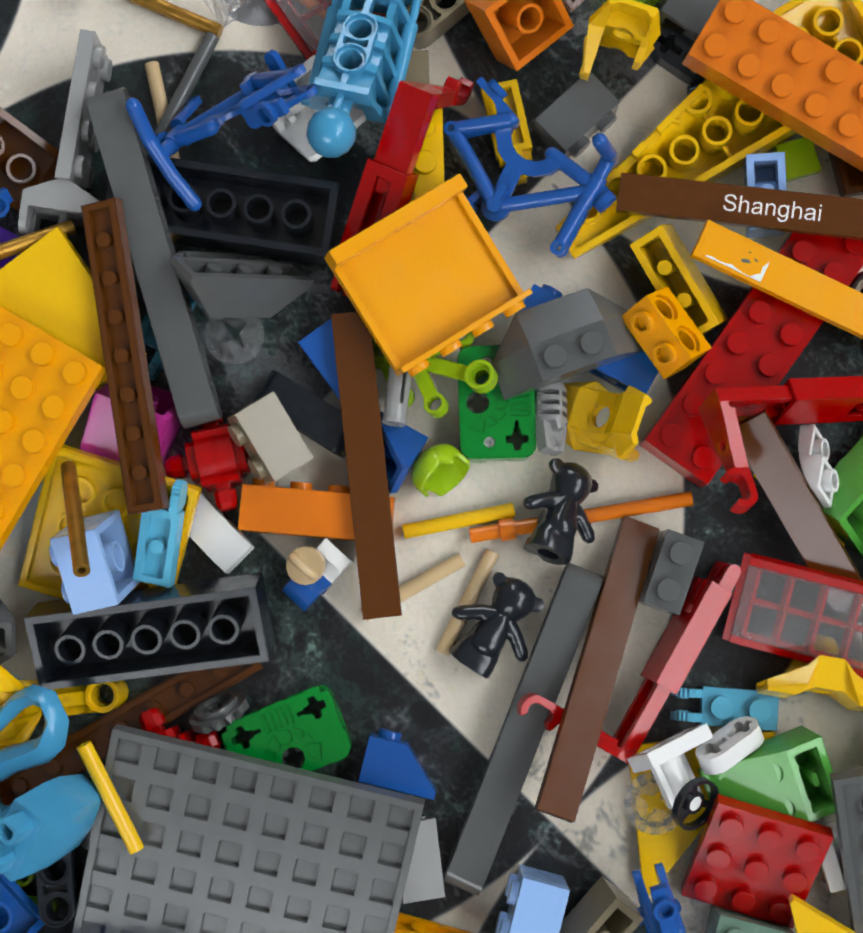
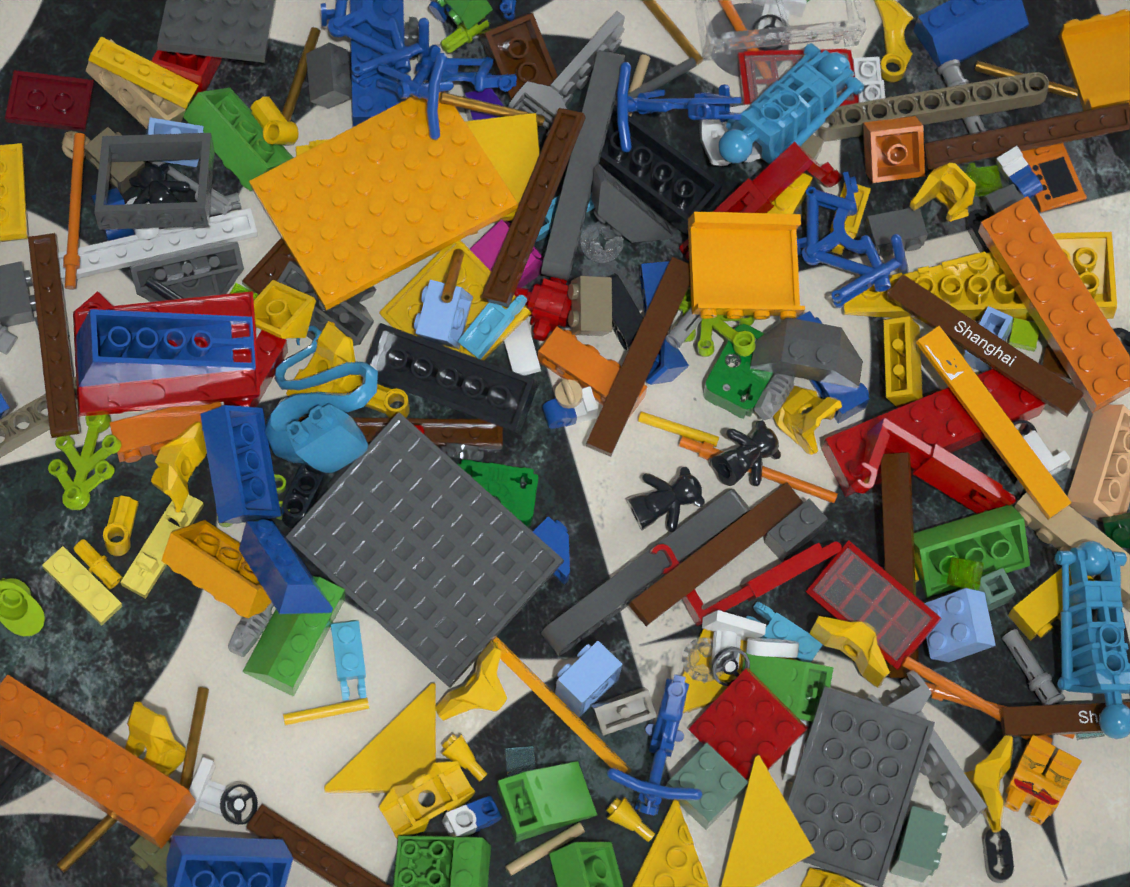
camera: 20 degrees right, 15 degrees down
(110, 797) = (372, 452): yellow bar -> none
(425, 869) = (532, 617): light grey hinge -> none
(430, 577) = (631, 452): tan bar -> none
(439, 469) = (685, 389): lime hair -> none
(469, 598) = (664, 474): tan bar -> none
(665, 332) = (875, 380): light orange brick -> none
(814, 457) = (926, 513): white slope -> none

